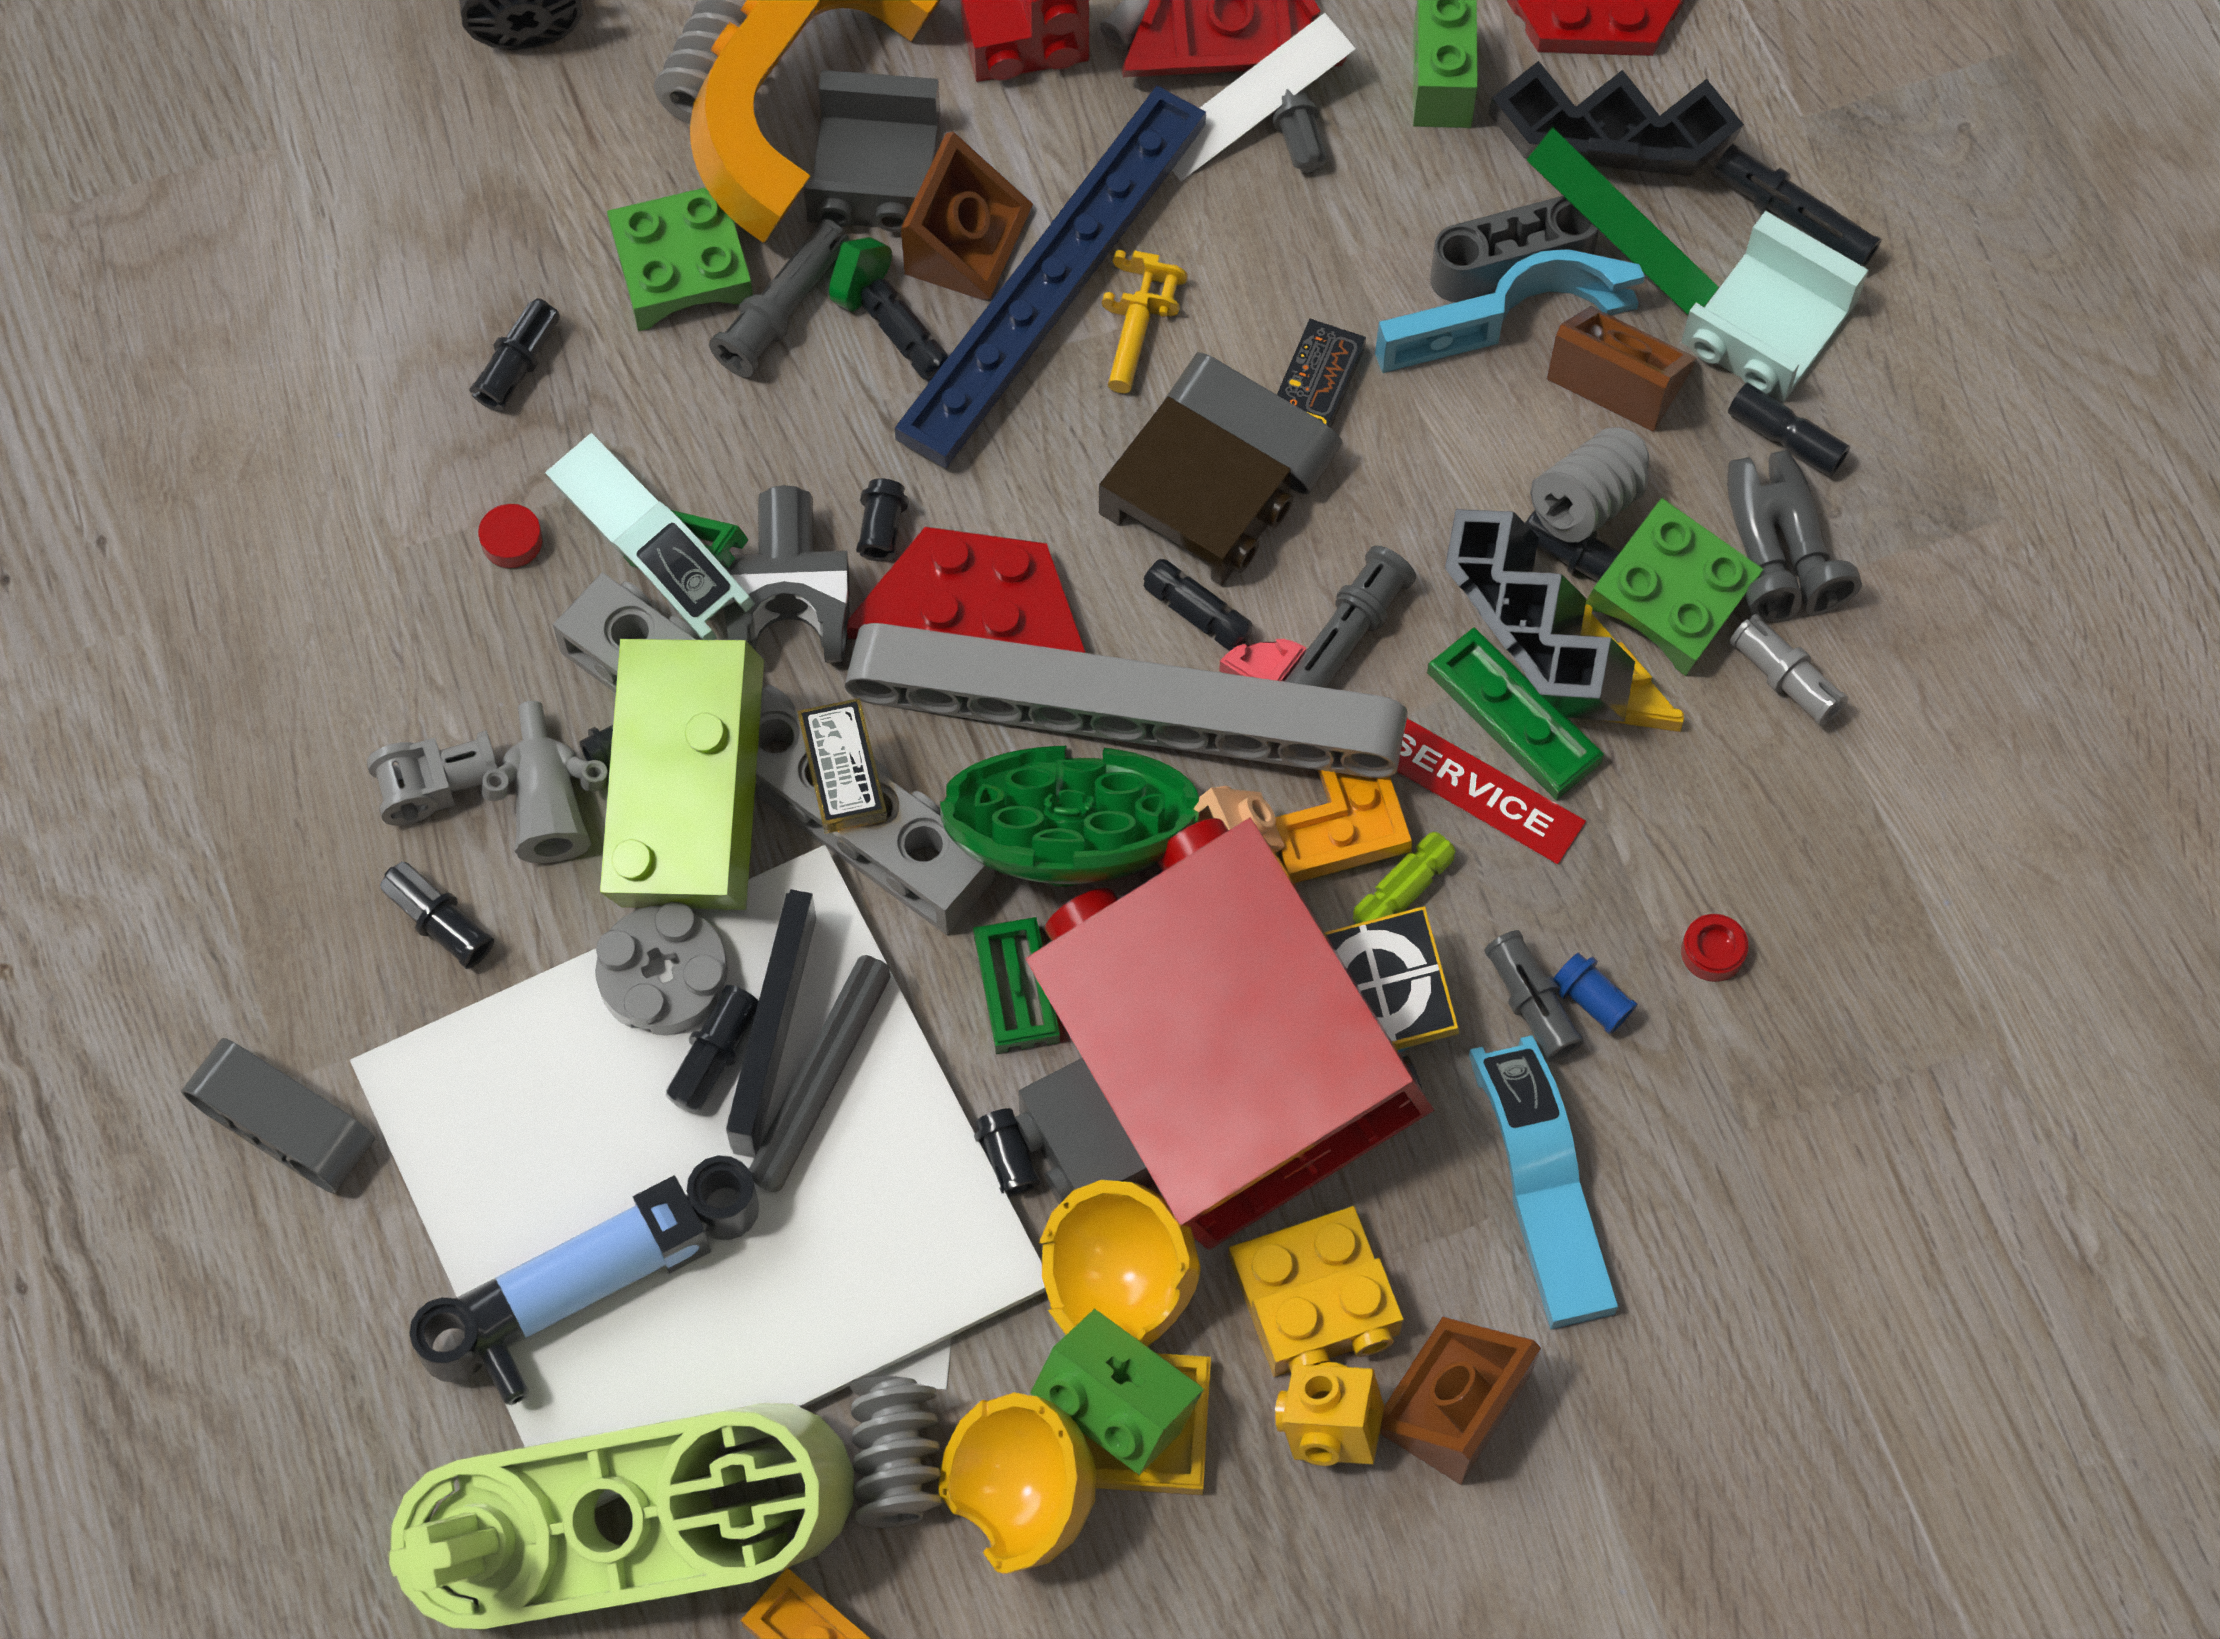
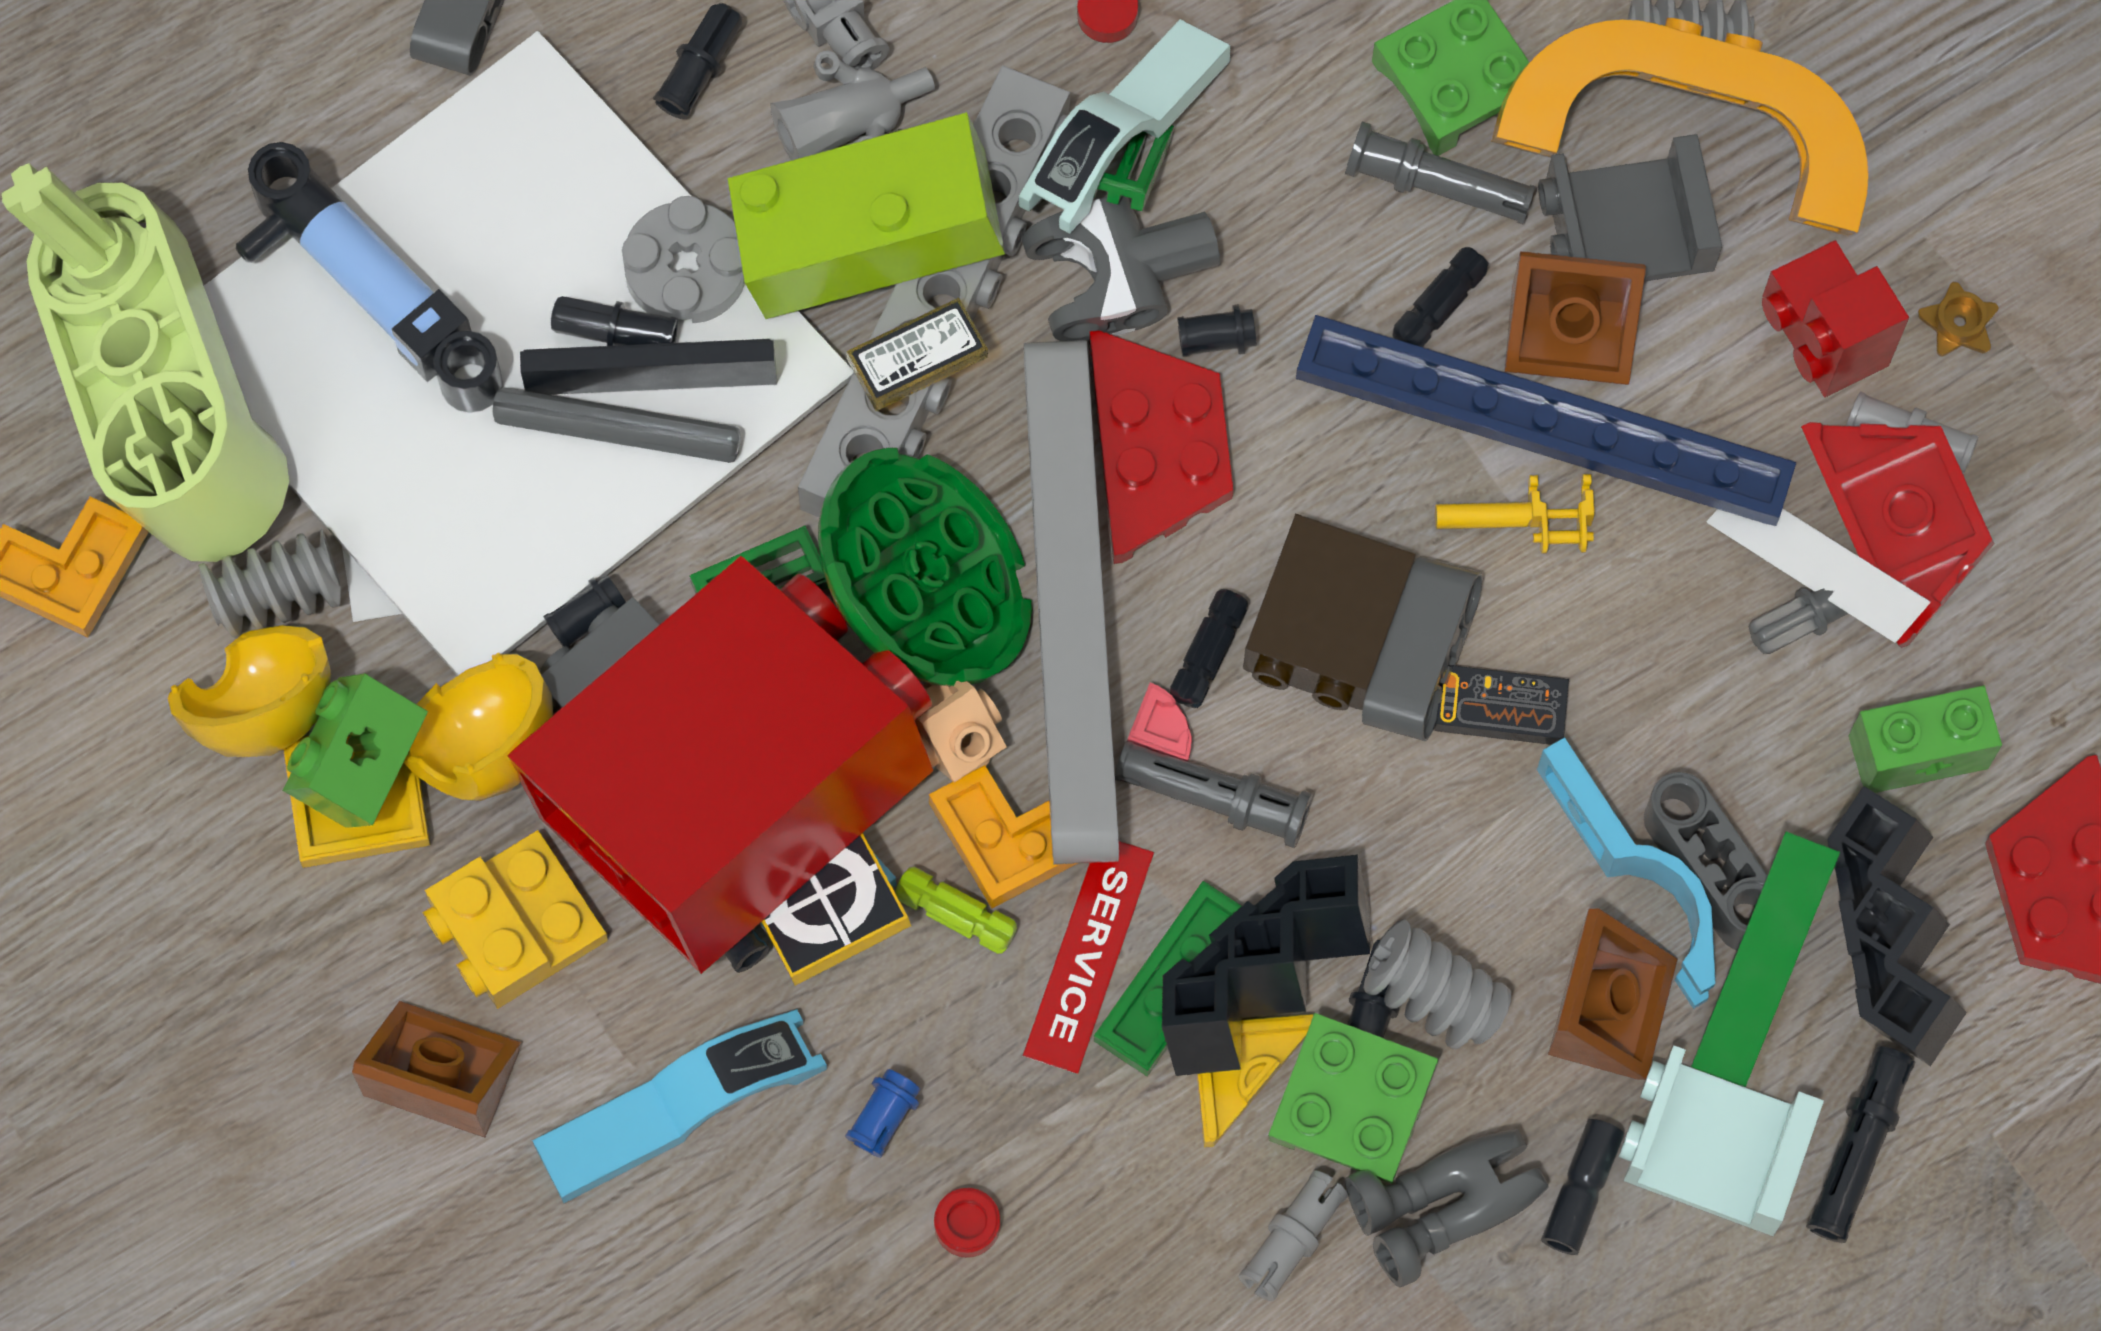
camera: 75 degrees right, 5 degrees up
(857, 266) = (1491, 235): green tile -> none
(1331, 1414) = (386, 952): yellow brick -> none
(1511, 961) = (864, 1055): dark grey pin -> none

